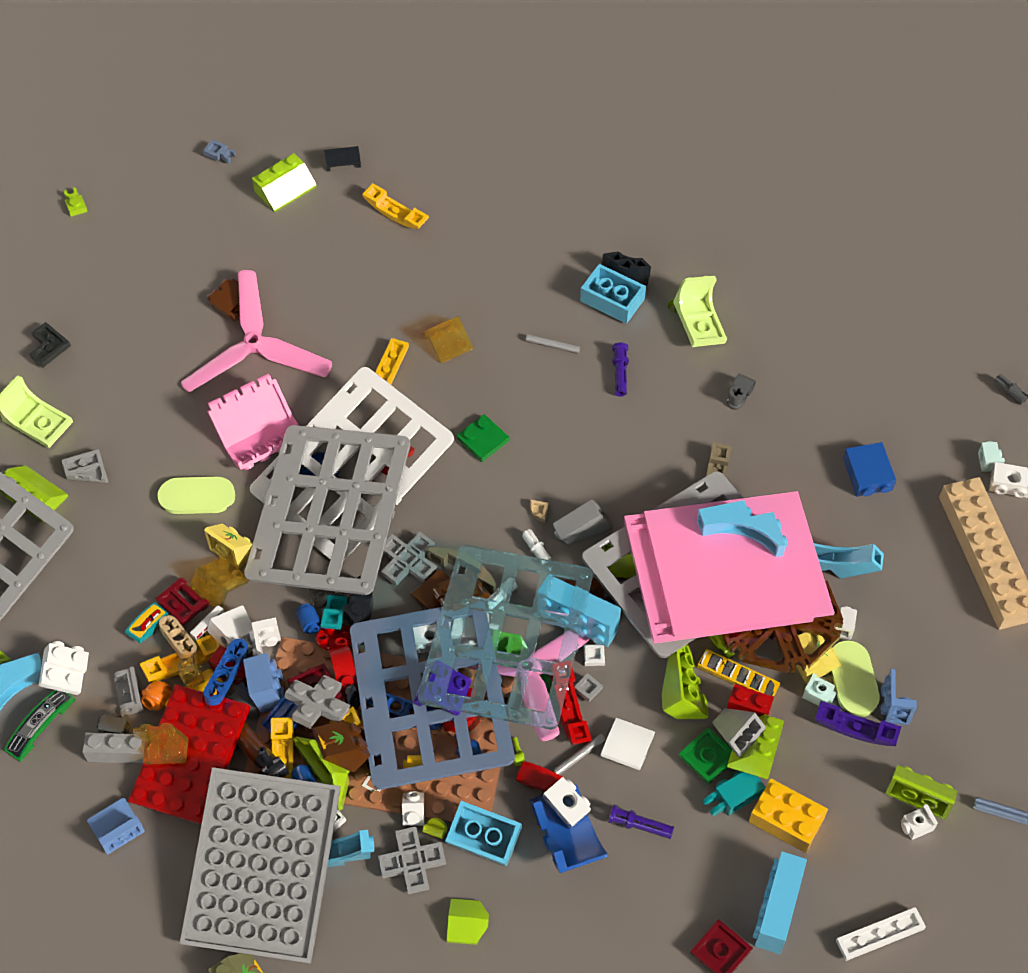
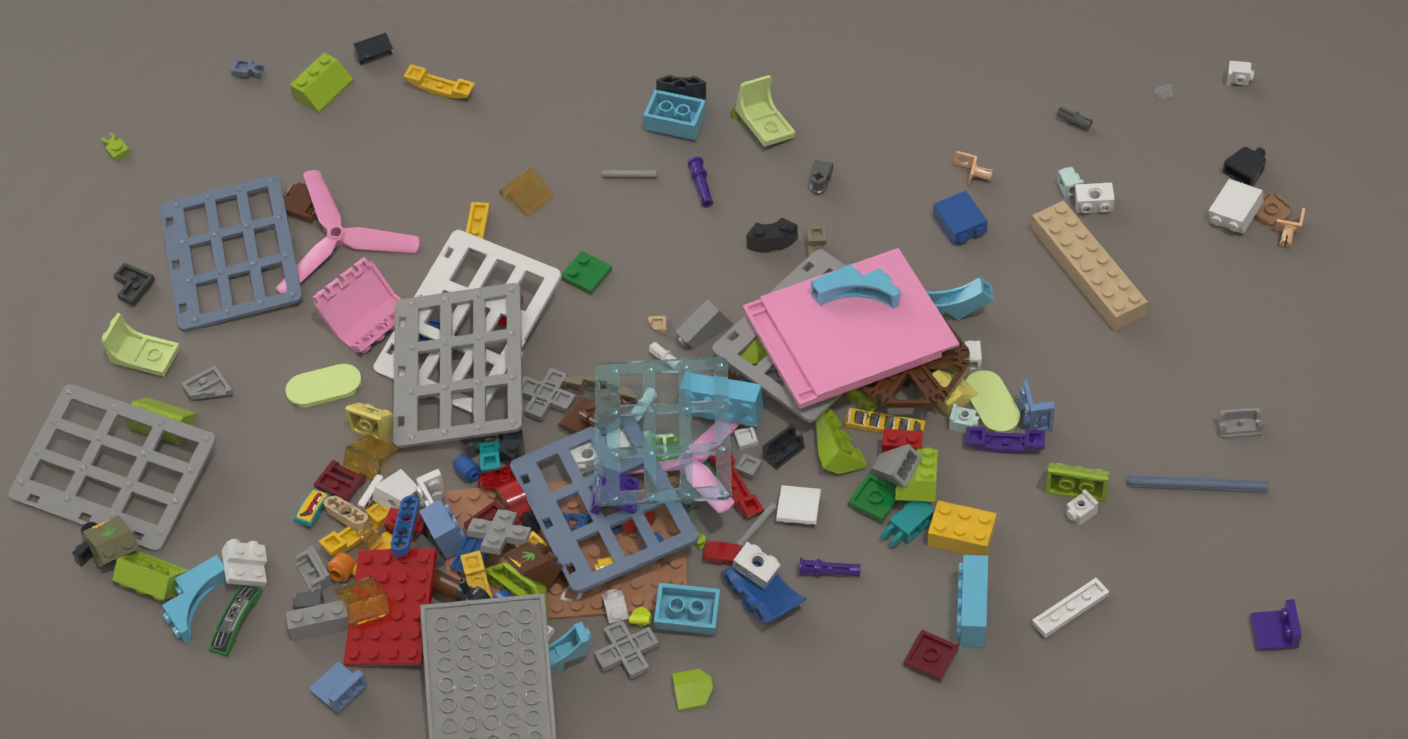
camera: 10 degrees left, 5 degrees down
(105, 313) = (179, 250): none -> sand blue door
(628, 676) = (783, 447): none -> black hinge
(675, 444) = (772, 236): none -> black brick
(896, 421) = (975, 171): none -> light nougat bracket

